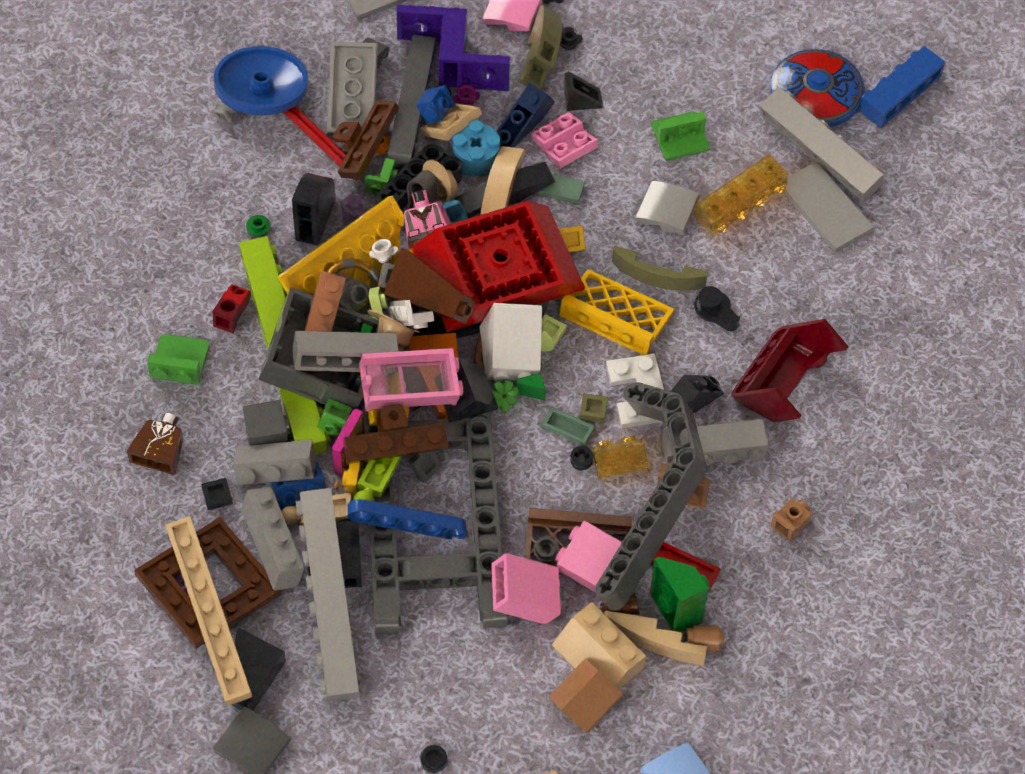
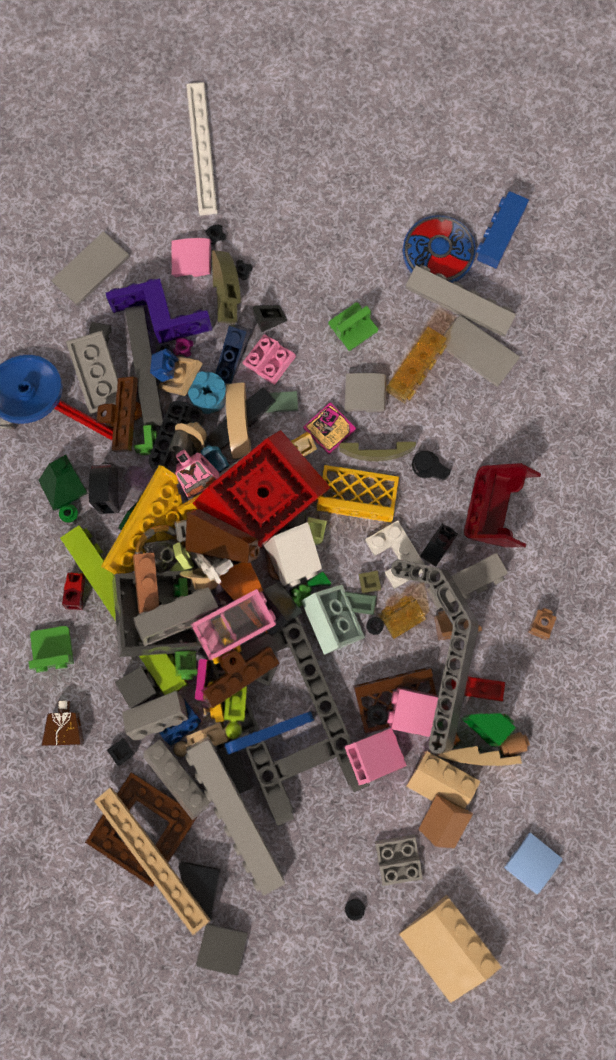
camera: 15 degrees left, 20 degrees up
(264, 190) = (61, 483): none -> dark green slope
(383, 250) = (168, 509): white plate -> none
(510, 721) = (398, 860): none -> light grey slope
(526, 442) = (331, 624): none -> light aqua slope
(609, 230) = (329, 428): none -> tile

